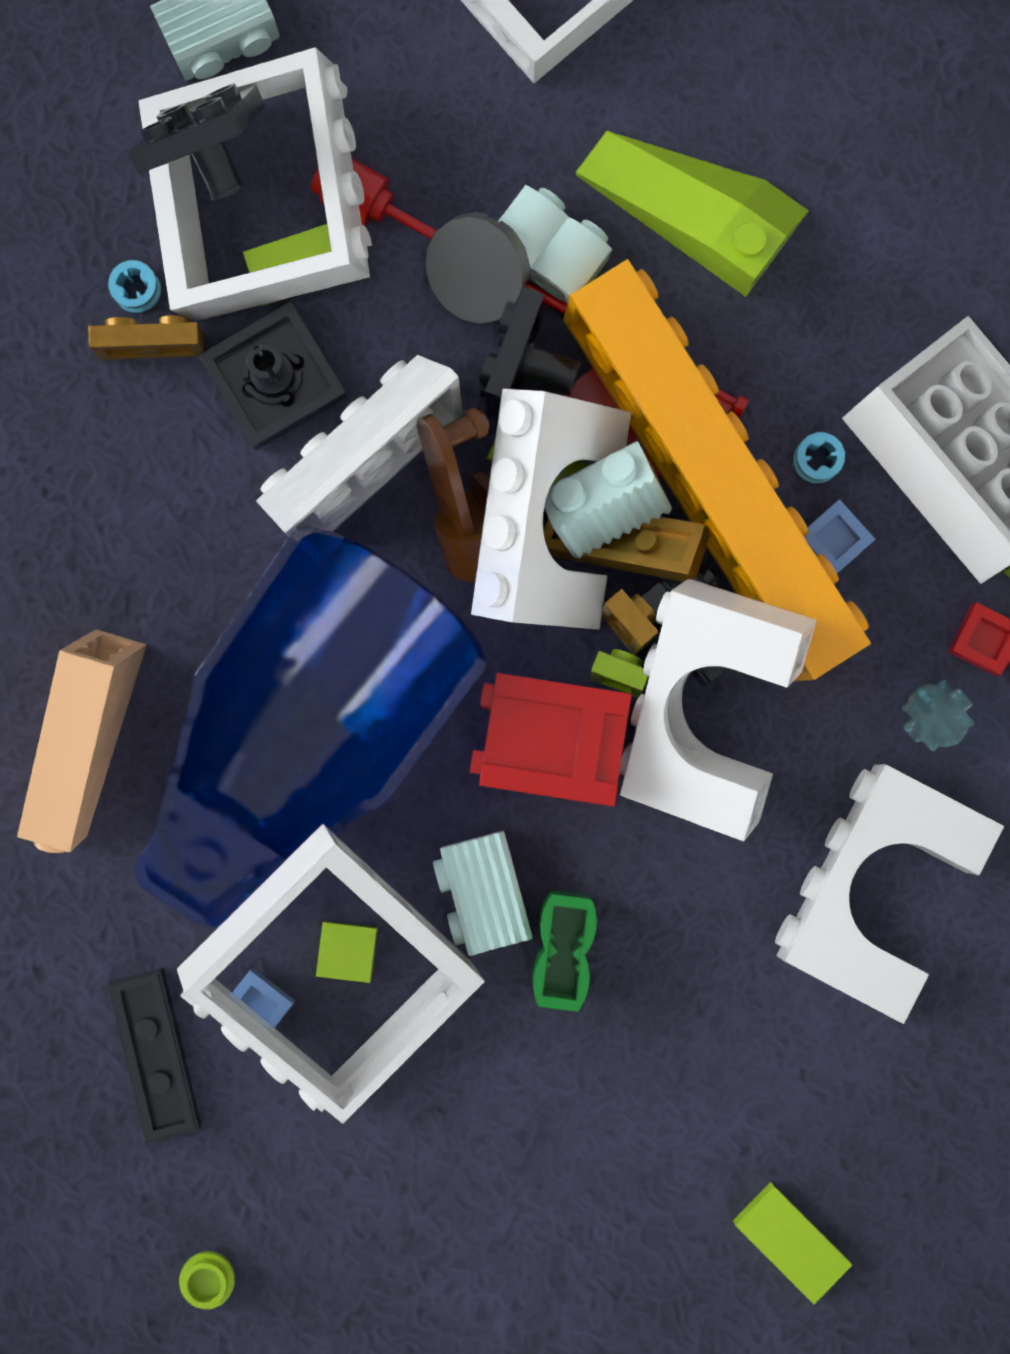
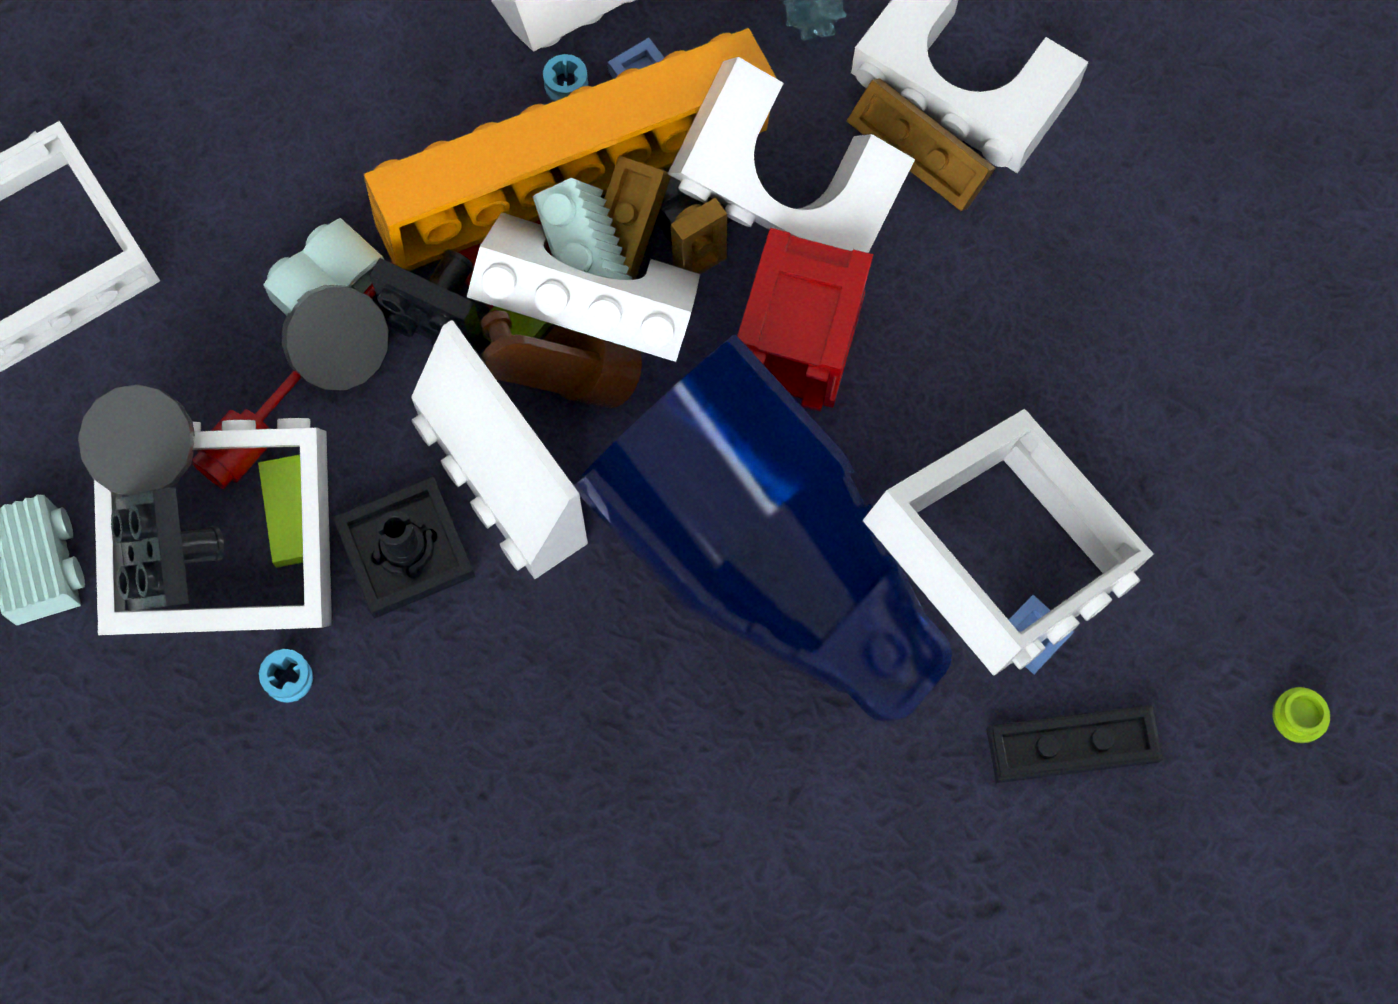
camera: 85 degrees left, 15 degrees down
(78, 738) = (749, 772): light nougat slope -> none
(126, 339) = (347, 640): pearl gold plate -> none
(309, 90) = (136, 440): none -> dark grey tile
(346, 951) = (985, 545): lime tile -> none
(484, 893) = (938, 406): light aqua brick -> none
(560, 966) = (1010, 340): green brick -> none
(620, 672) = (741, 262): lime plate -> none
(705, 210) = (316, 145): lime wedge -> none
(787, 847) = (939, 156): none -> pearl gold plate
(792, 1243) = (1278, 188): lime tile -> none

